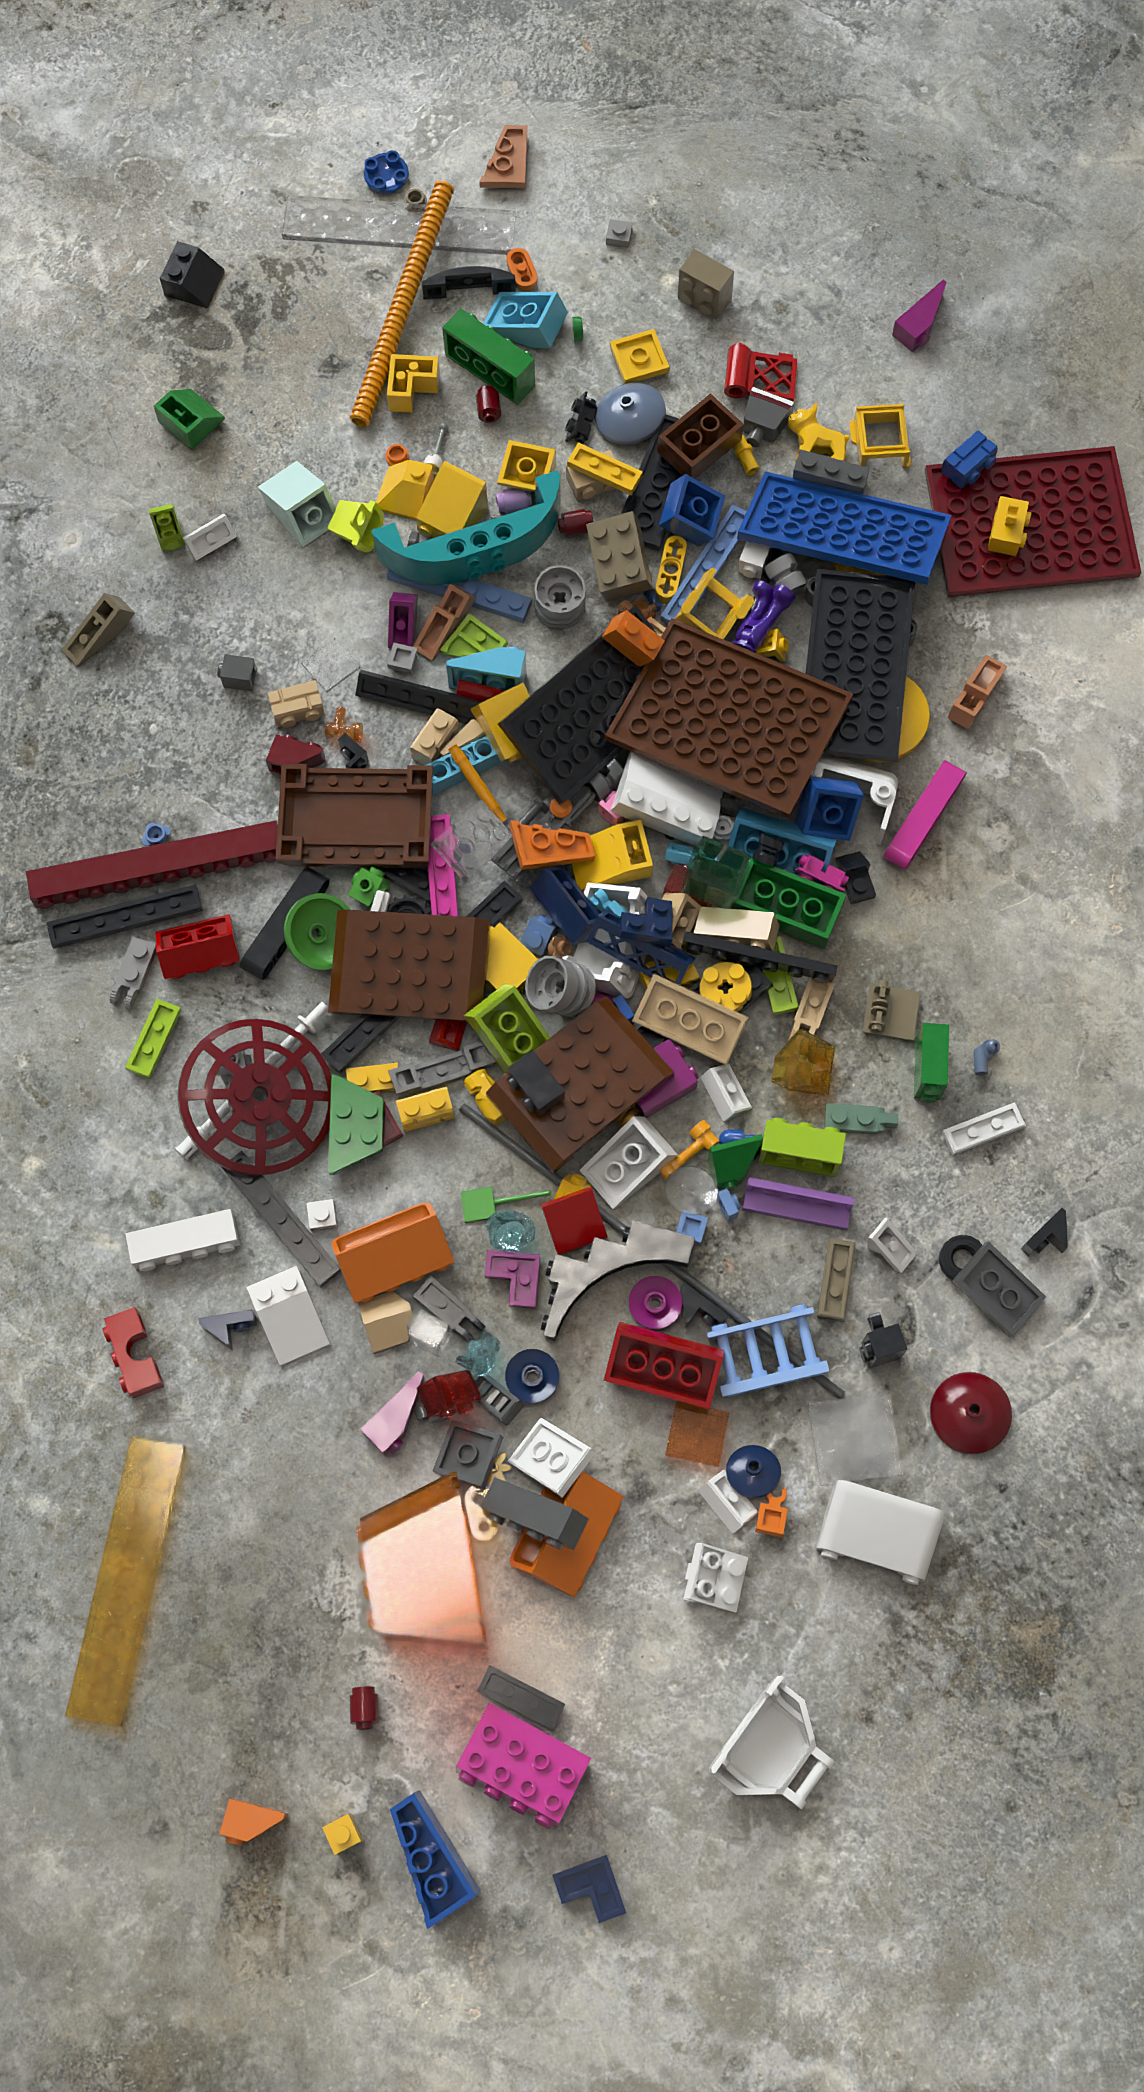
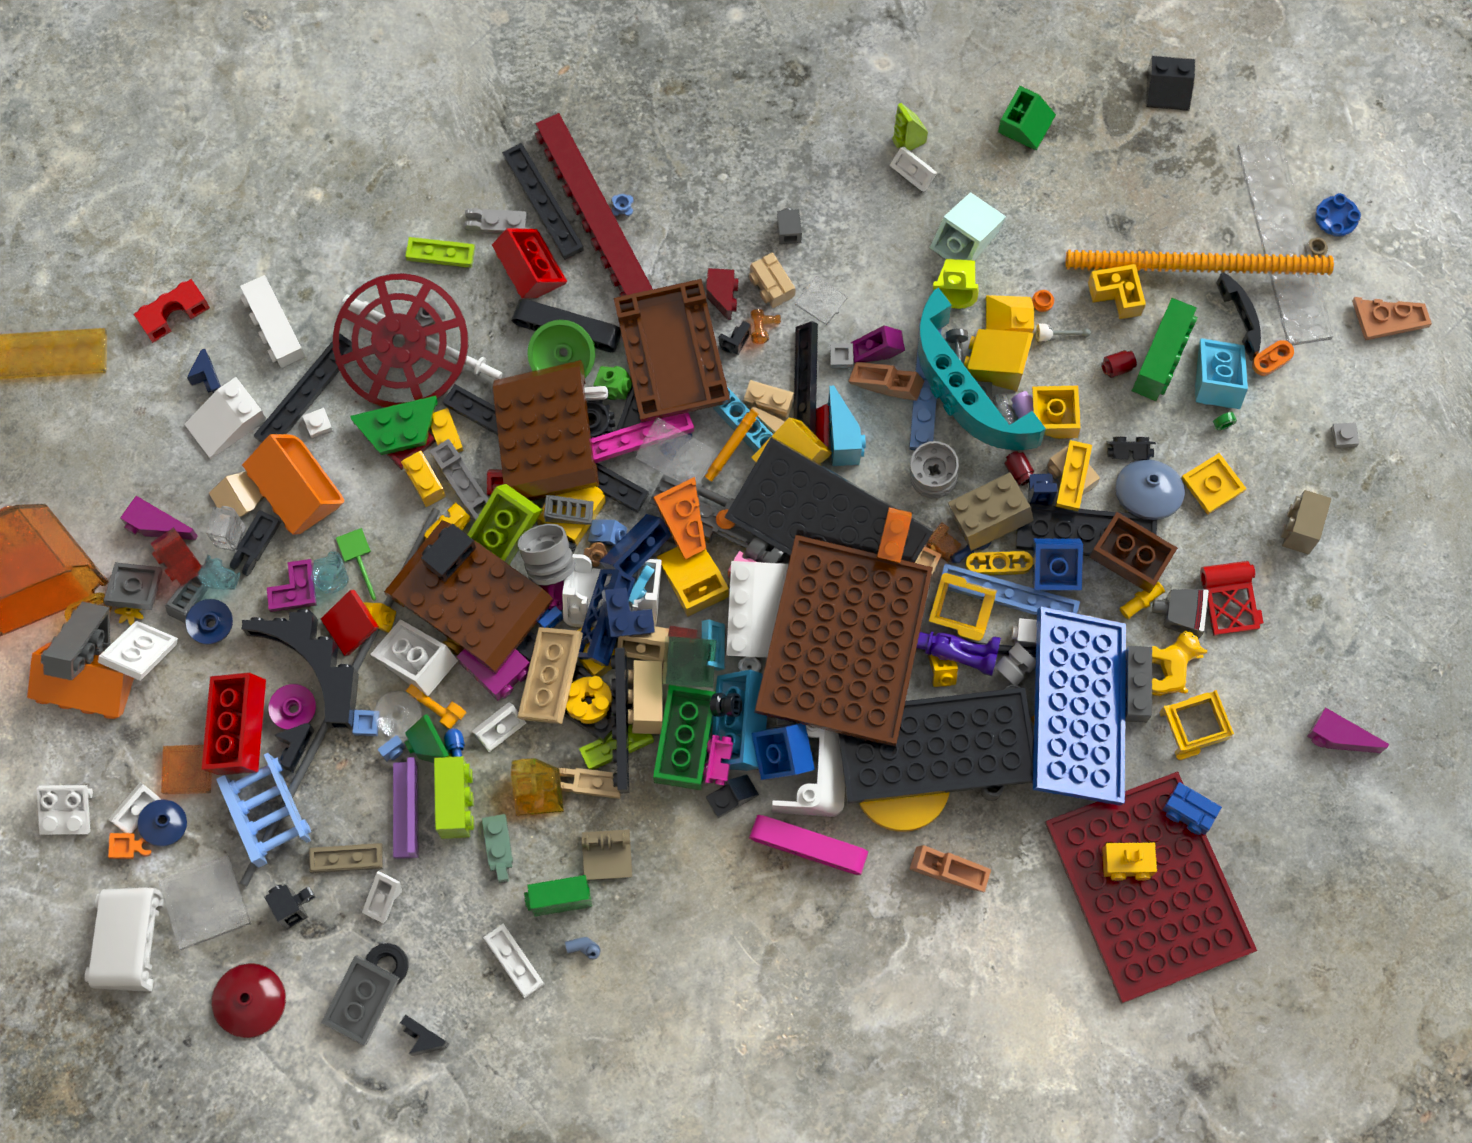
camera: 75 degrees right, 0 degrees up
(98, 628) = (800, 106): dark tan slope -> none
(472, 638) = (875, 411): lime wing -> none
(504, 978) = (569, 502): none -> dark grey slope
(607, 504) = (1041, 489): none -> dark blue slope

